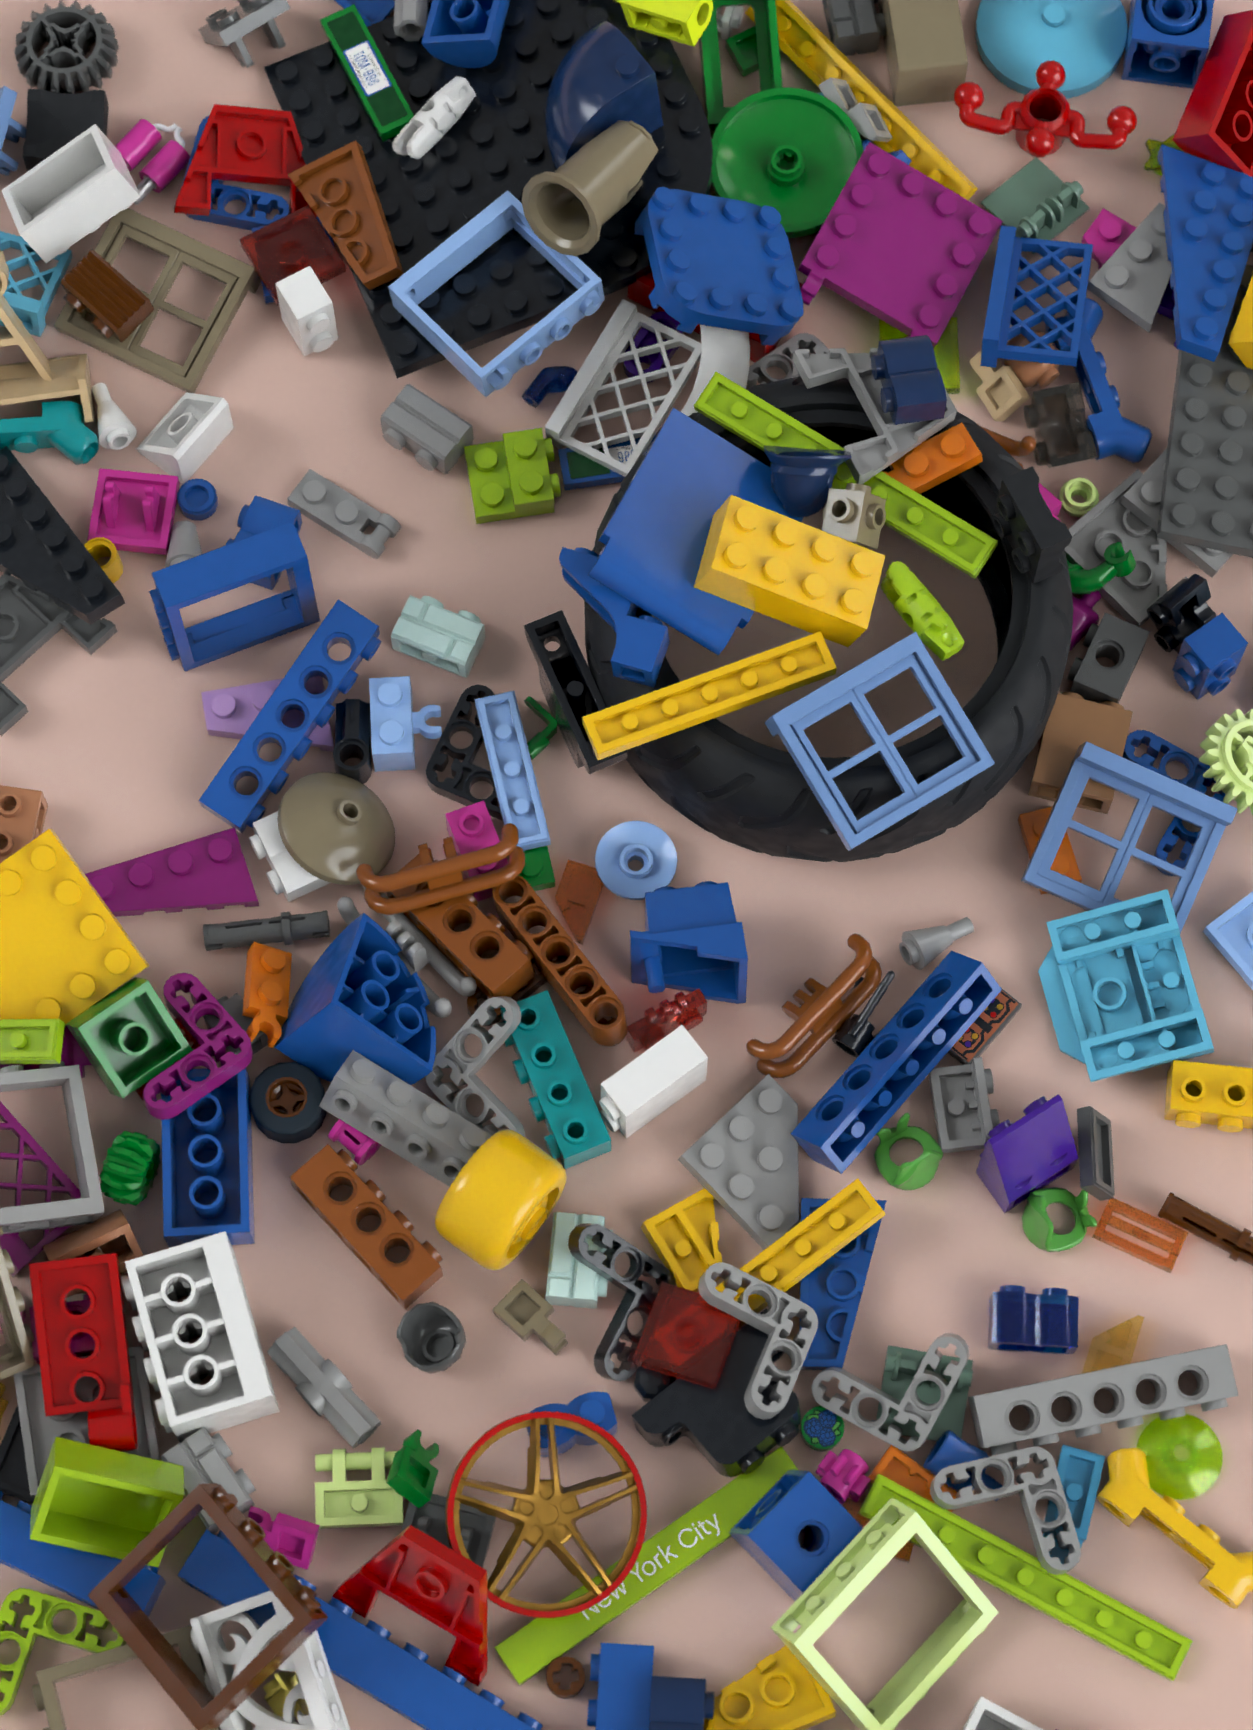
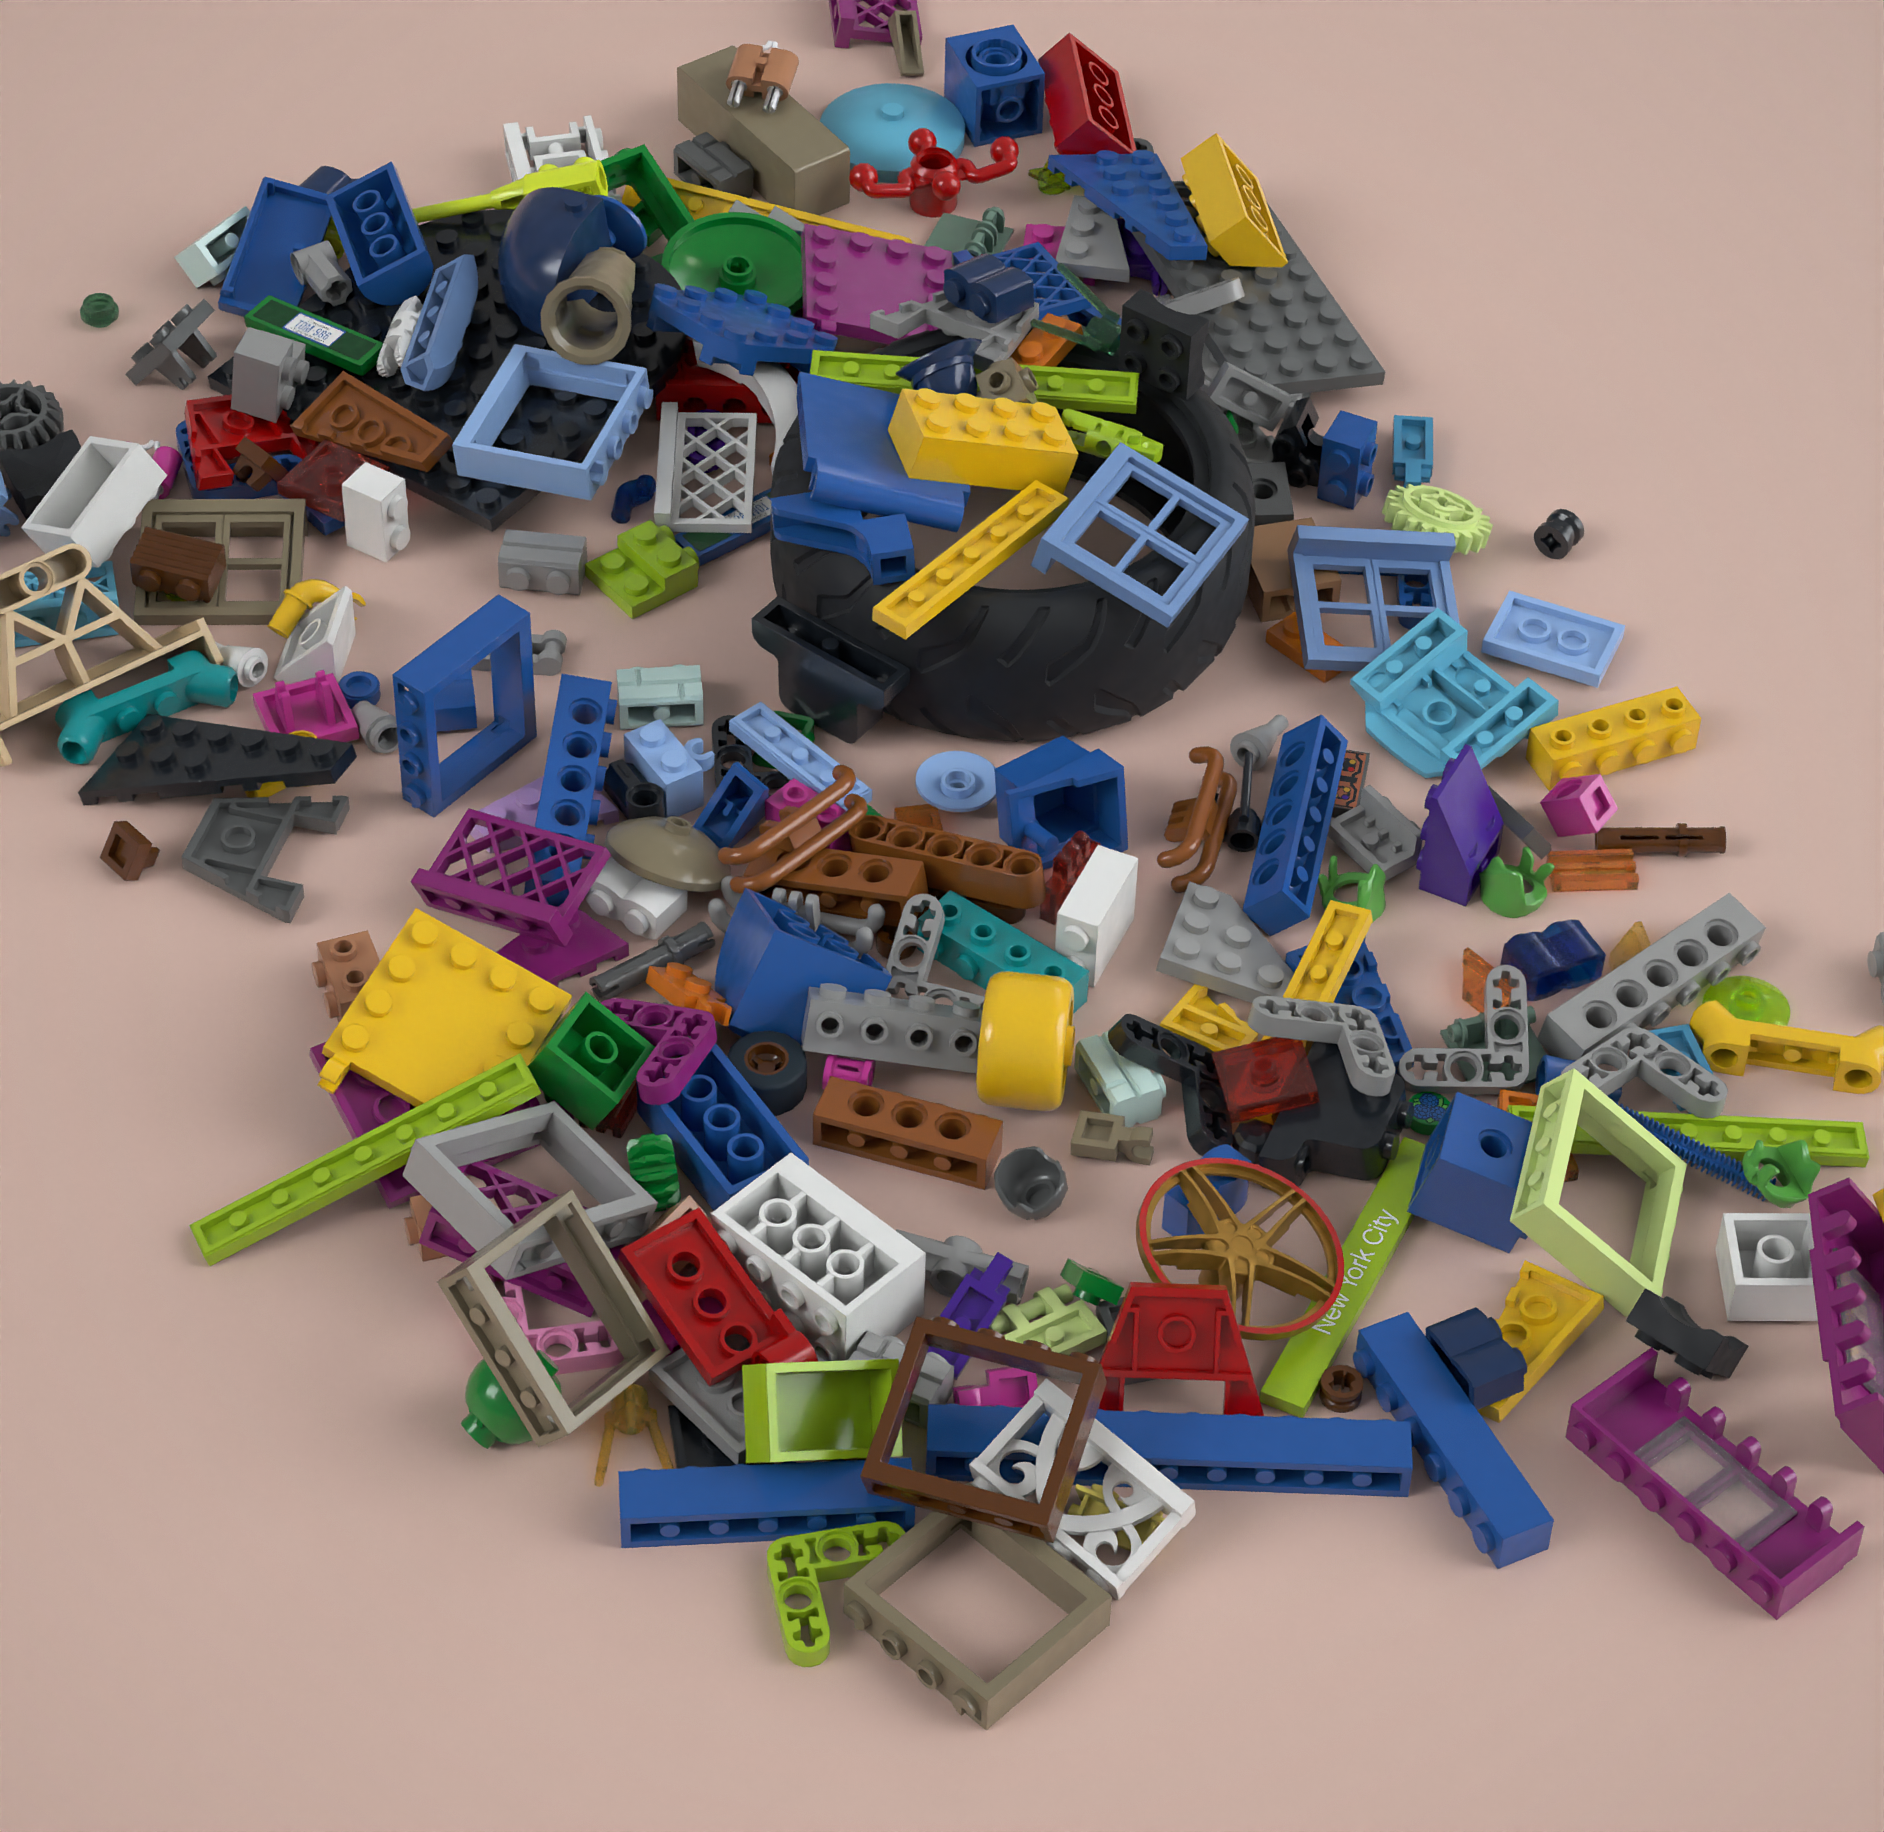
camera: 30 degrees left, 25 degrees down
(164, 818) = (490, 902): none -> magenta fence
(194, 380) = (300, 598): none -> yellow piece
(242, 205) = (259, 463): none -> reddish brown tile
(293, 108) = (266, 373): none -> light grey brick
(295, 1452) = (976, 1304): none -> dark purple hinge
(420, 802) = (733, 807): none -> blue slope
(468, 125) = (441, 324): none -> medium blue brick
(670, 87) = (624, 228): none -> blue dish
(961, 1315) = (1474, 978): none -> clear orange tile
(990, 471) = (1100, 333): none -> clear green plant
(1008, 1601) = (1697, 1153): none -> blue axle
(1094, 1657) = (1791, 1167): none -> bright green piece
(1146, 400) = (1205, 298): none -> light grey beam
(1151, 544) = (1248, 396): none -> light grey panel
(1164, 1166) = (1579, 805): none -> dark pink brick

